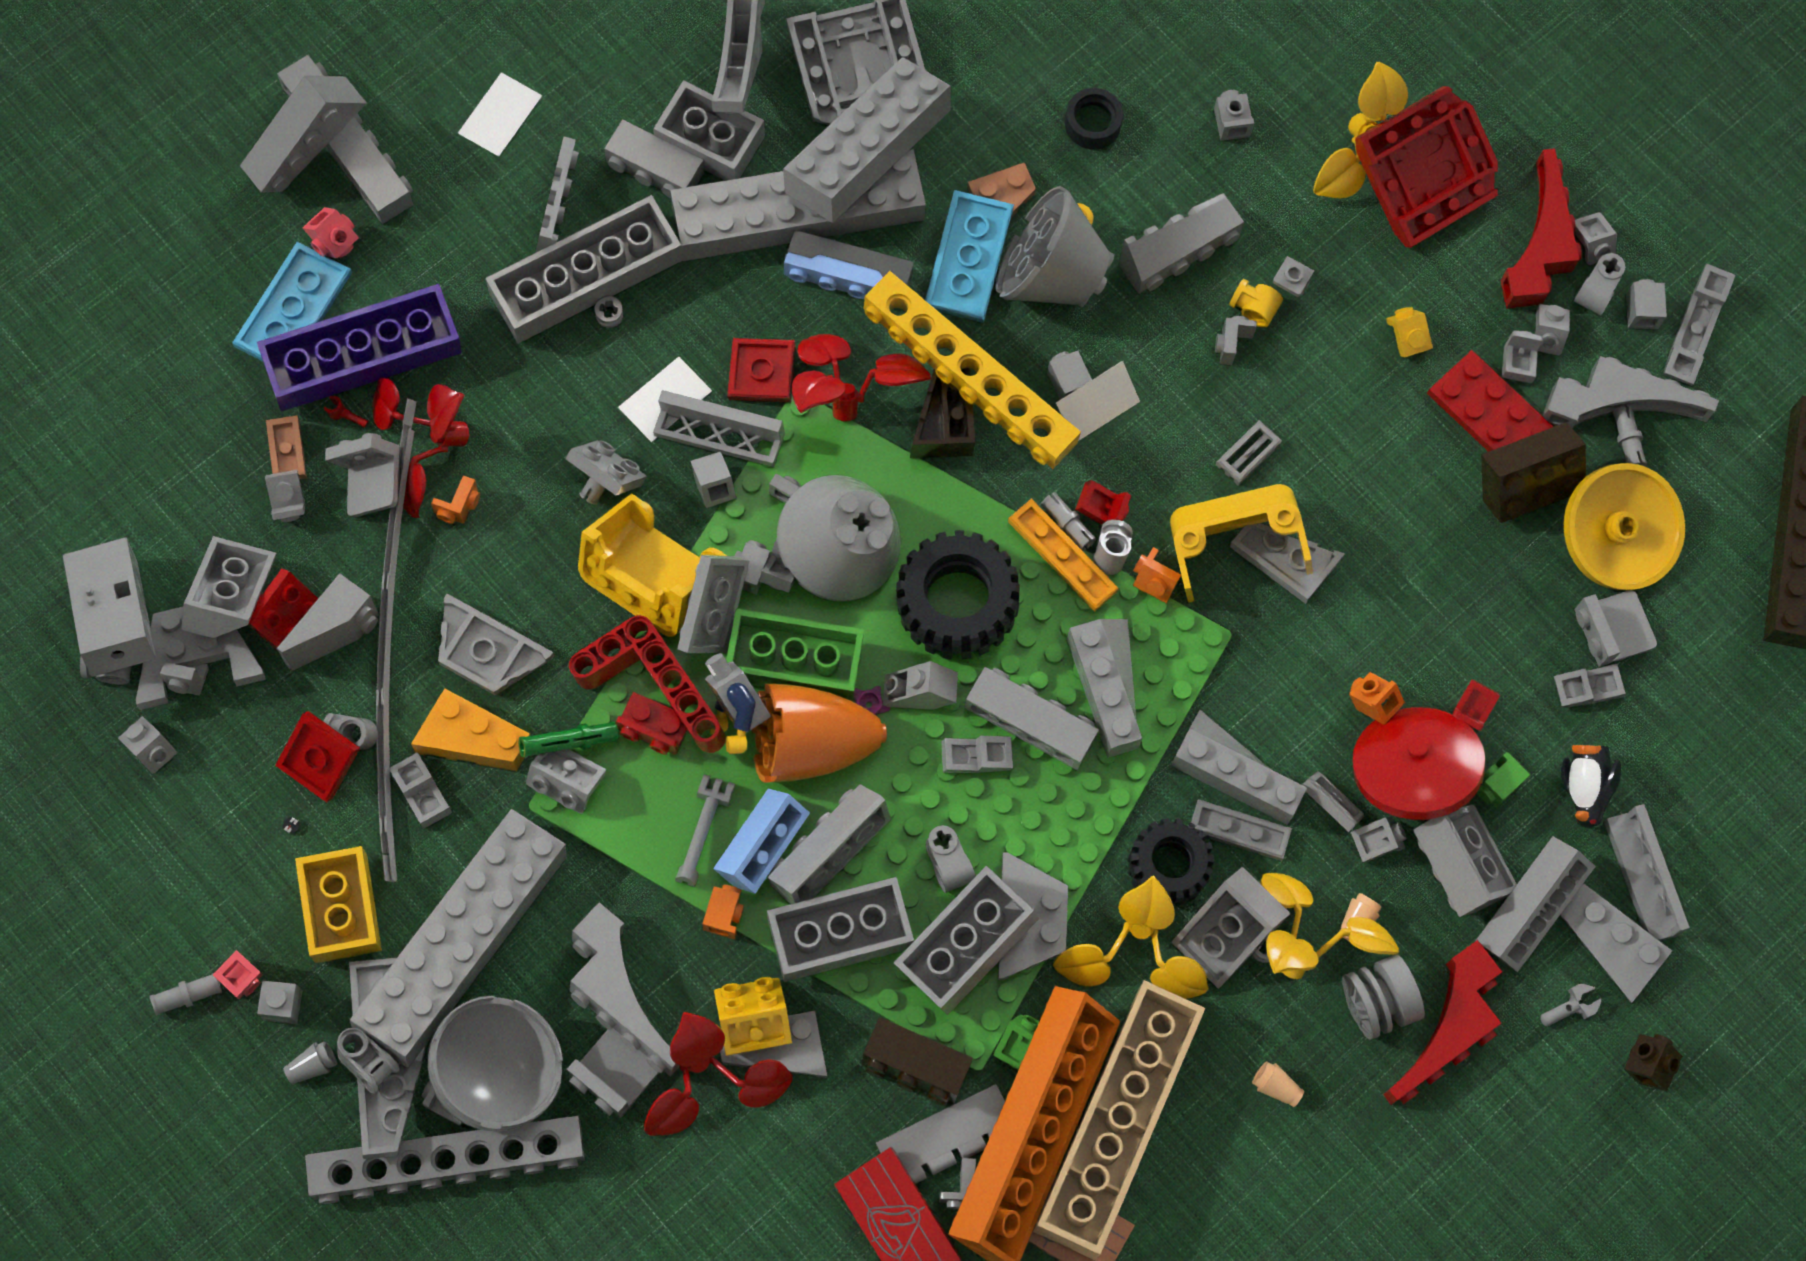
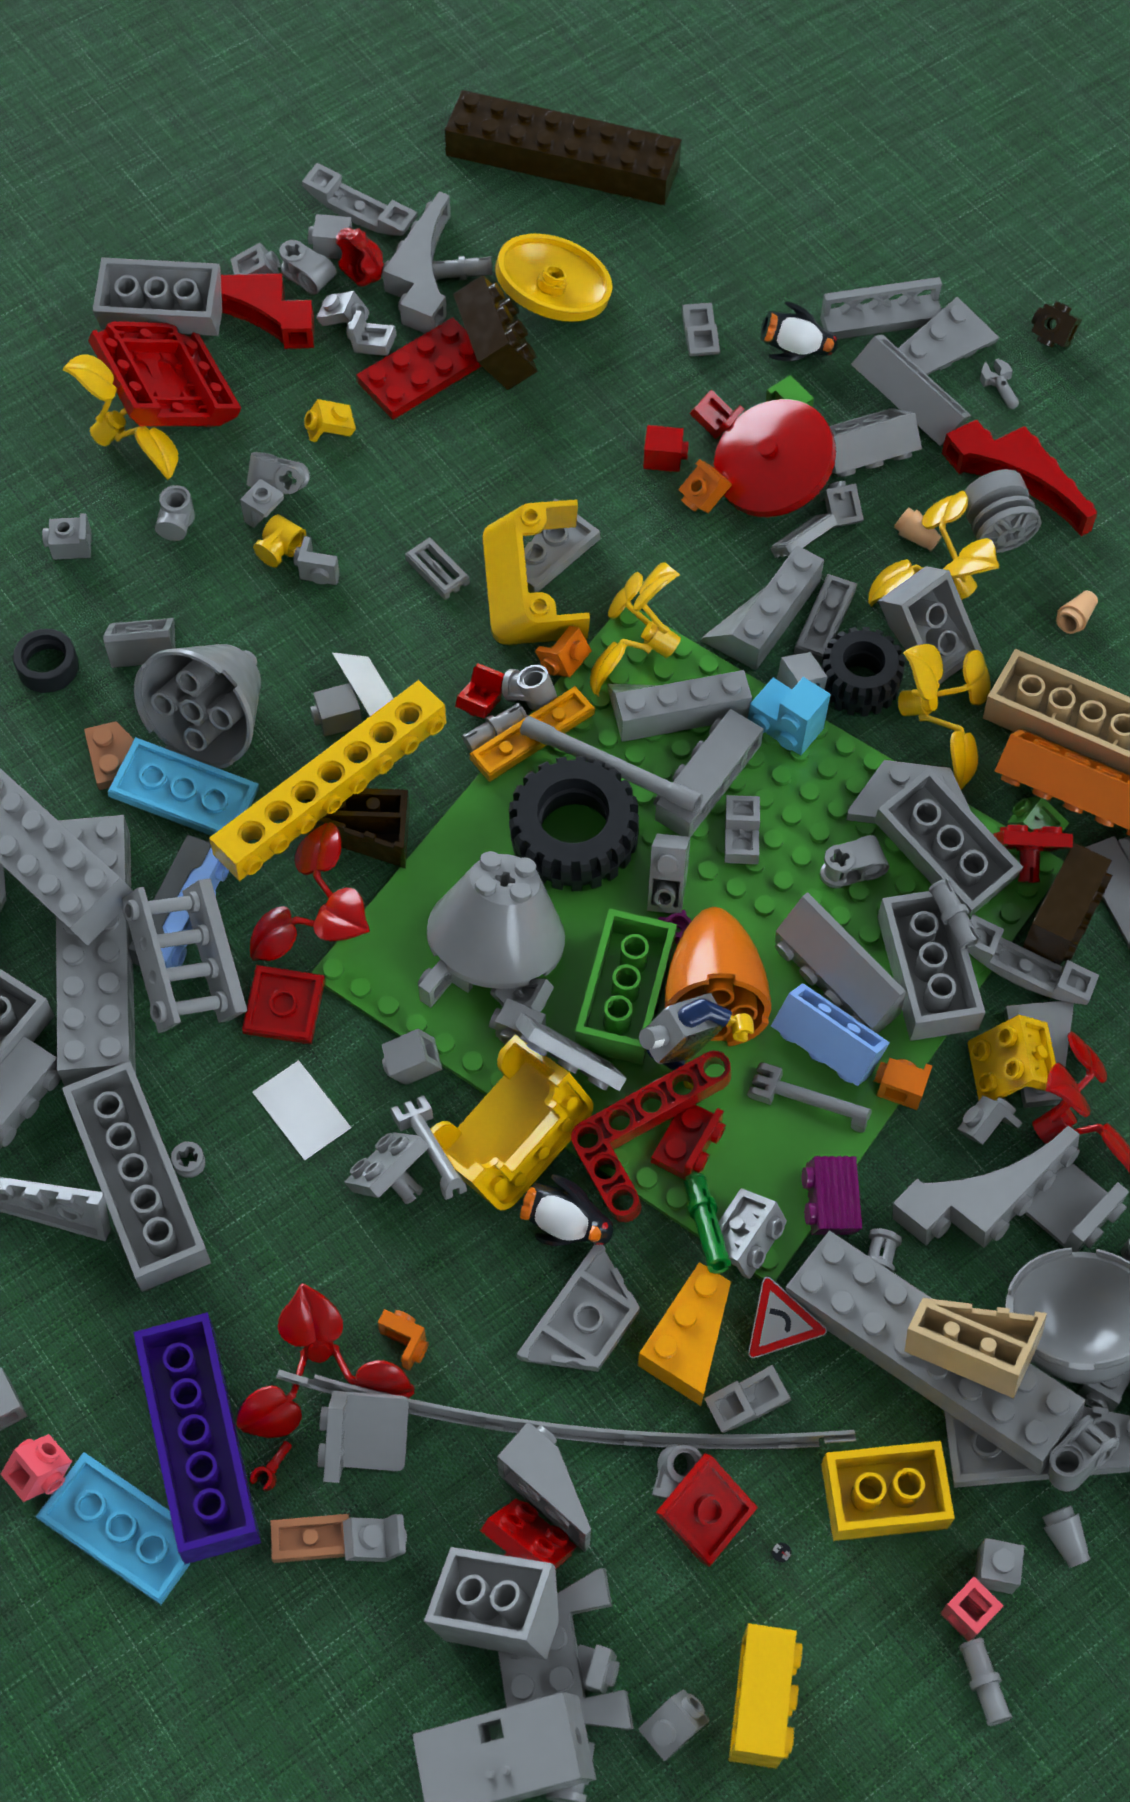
camera: 80 degrees left, 10 degrees down
(162, 807) = (765, 1696): none -> yellow brick
(443, 960) = (976, 1342): none -> tan wedge
(486, 810) = (780, 1321): none -> piece
(559, 899) = (884, 1239): none -> light grey bush
(572, 621) = (565, 1214): none -> animal
(606, 851) = (832, 1195): none -> magenta brick
(650, 487) = (417, 1120): none -> light grey hinge
(694, 988) = (984, 1118): none -> light grey bracket
(720, 417) = (339, 1043): light grey fence -> none
(782, 303) = (213, 948): none -> light grey fence
(856, 1026) = (1030, 970): none -> light grey slope
(878, 940) = (954, 914): none -> light grey pin
(976, 1022) = (1031, 844): none -> red plate
(993, 677) = (671, 791): none -> light grey piece
(1104, 788) = (790, 714): none -> medium azure brick
(1127, 195) = (138, 640): none -> light grey slope
(1154, 803) = (795, 667): none -> light grey brick
(1179, 243) = (203, 593): light grey wedge -> none
(1182, 656) = (655, 634): none -> yellow plant
(1264, 205) = (175, 513): none -> light grey piece
(1331, 285) = (275, 472): none -> light grey piece
(1422, 656) = (664, 448): none -> red brick
(1527, 147) = (160, 293): none -> light grey slope
(1615, 627) = (648, 303): light grey bracket -> none
(1616, 333) = (360, 257): none -> red hair

